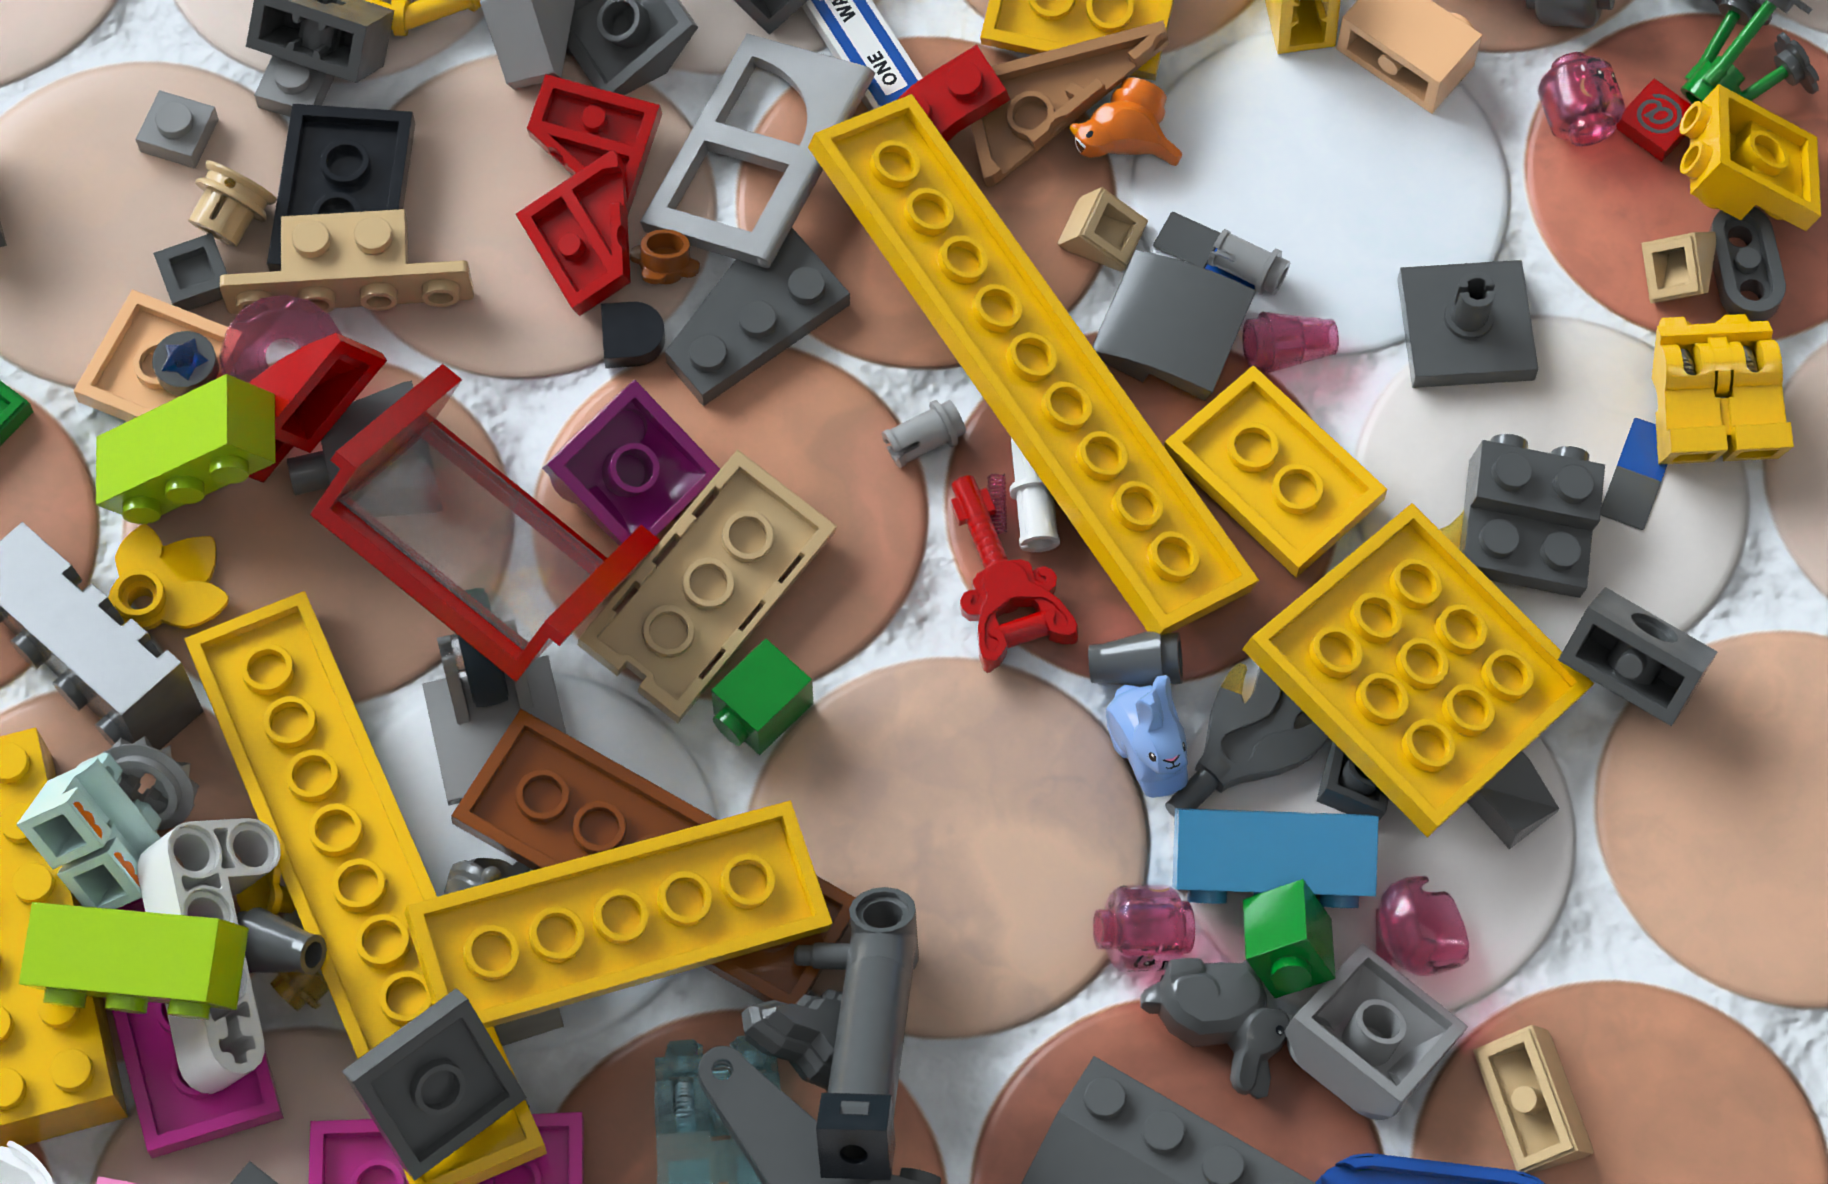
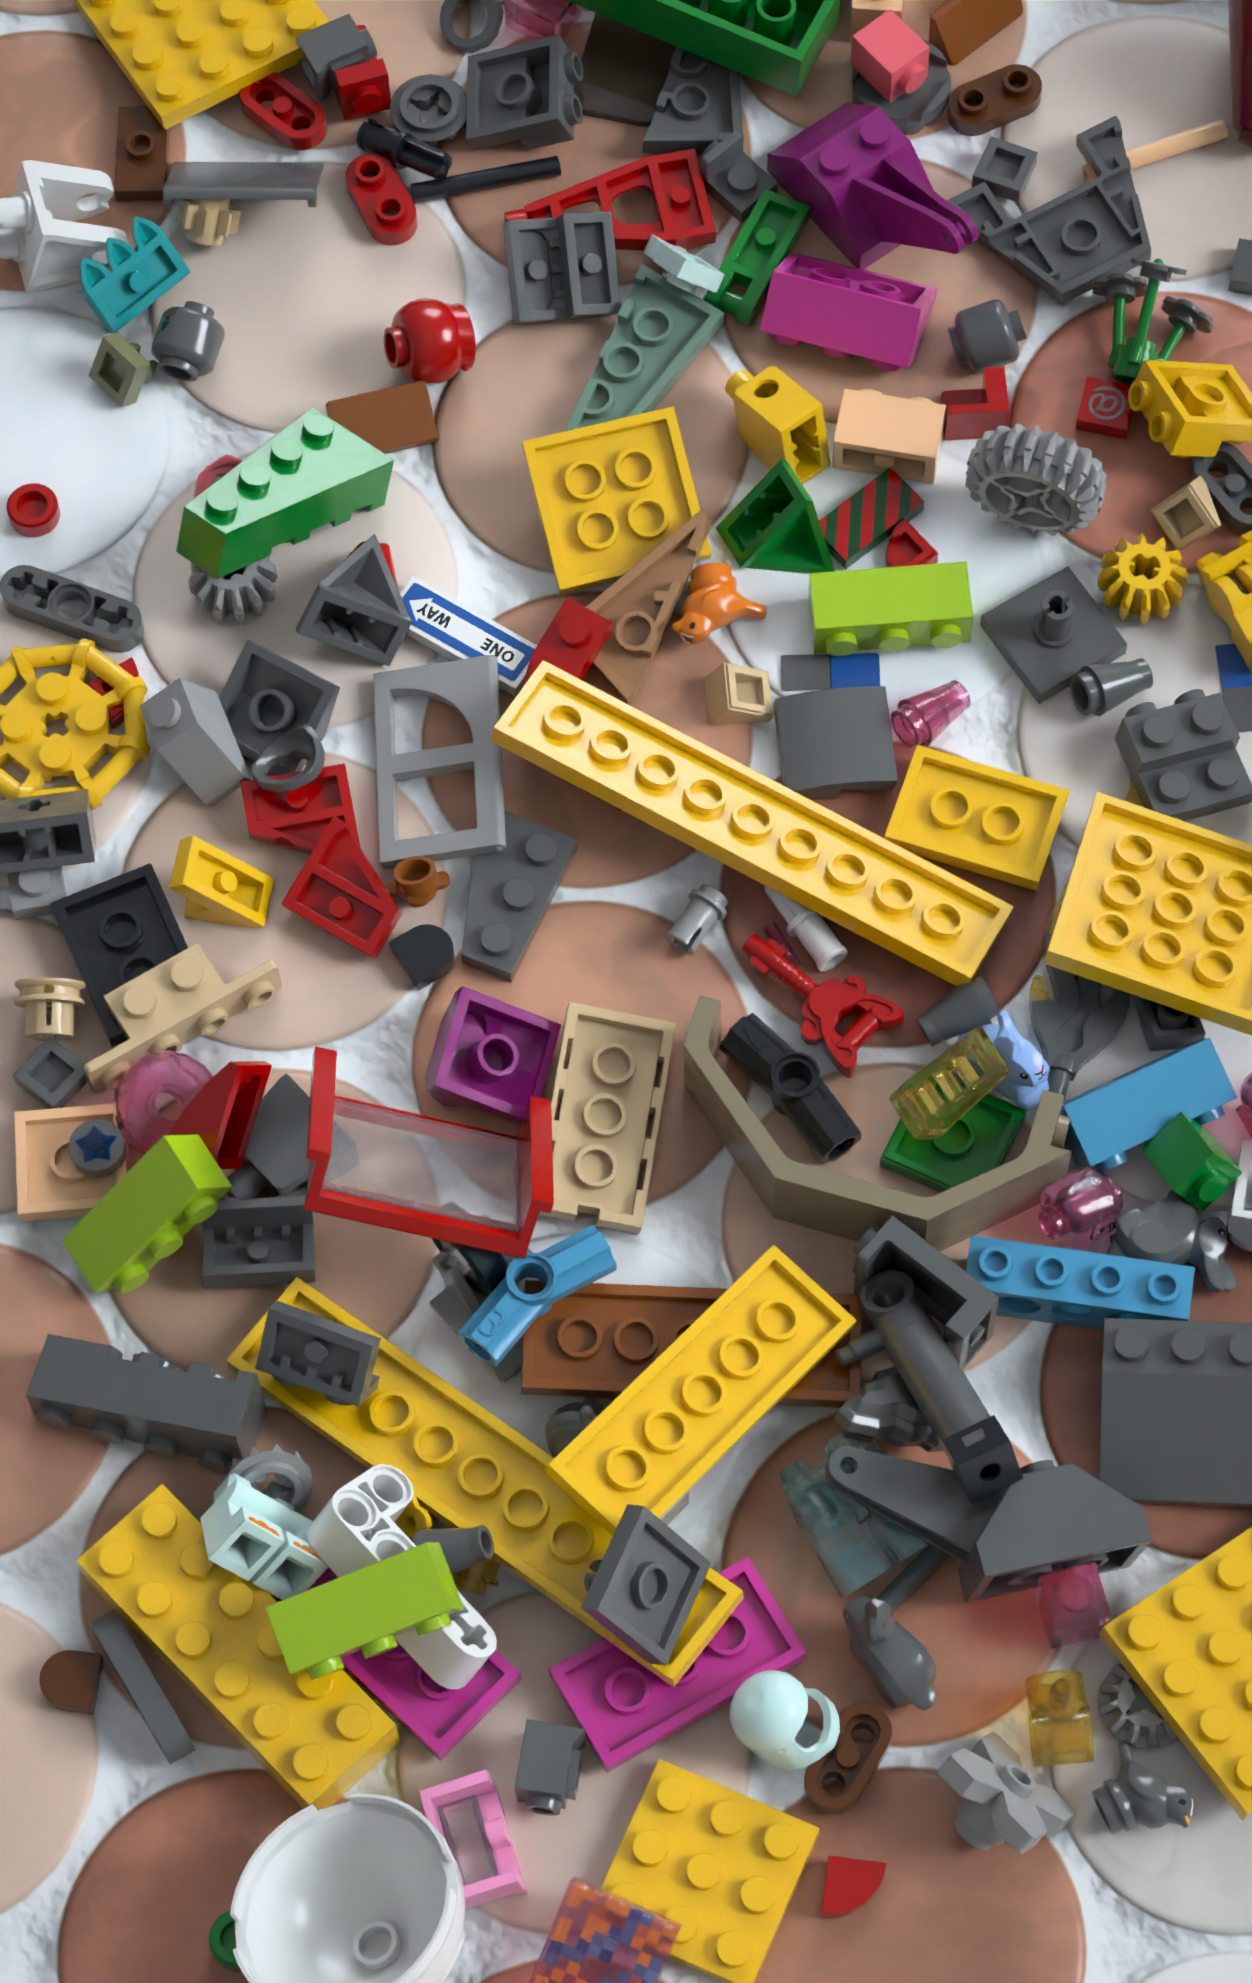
camera: 25 degrees left, 0 degrees up
(172, 575) = (180, 1319): yellow plate -> none
(260, 676) = (318, 1355): none -> dark grey bracket
(280, 541) = (259, 1242): none -> dark grey bracket
(465, 165) = (220, 885): none -> yellow slope
(474, 733) = (510, 1312): none -> dark azure piece
(620, 62) = (297, 743): none -> dark grey piece
(761, 698) = (695, 1181): green brick -> none
(926, 683) = (812, 1110): none -> black piece
(953, 984) = (943, 1287): none -> dark grey panel
(957, 858) = (851, 1205): none -> dark tan panel
(1034, 725) = (920, 1102): none -> clear yellow slope
(1057, 788) = (964, 1151): none -> green tile
(1087, 1005) = (1078, 1285): none -> dark azure brick
(1237, 79) = (777, 527): none -> green slope
(1249, 262) = (866, 666): light grey pin -> none
(1308, 214) = (890, 608): none -> lime brick
(1341, 115) = (869, 517): none -> tile
(1361, 172) = (908, 547): none -> red tile
(1494, 402) = (1108, 685): none -> dark grey cone
(1516, 60) = (977, 410): none -> red panel
(1530, 151) = (1036, 479): none -> light grey gear
(1581, 99) = (1045, 407): clear pink head -> none
(1592, 309) = (1142, 578): none -> yellow gear

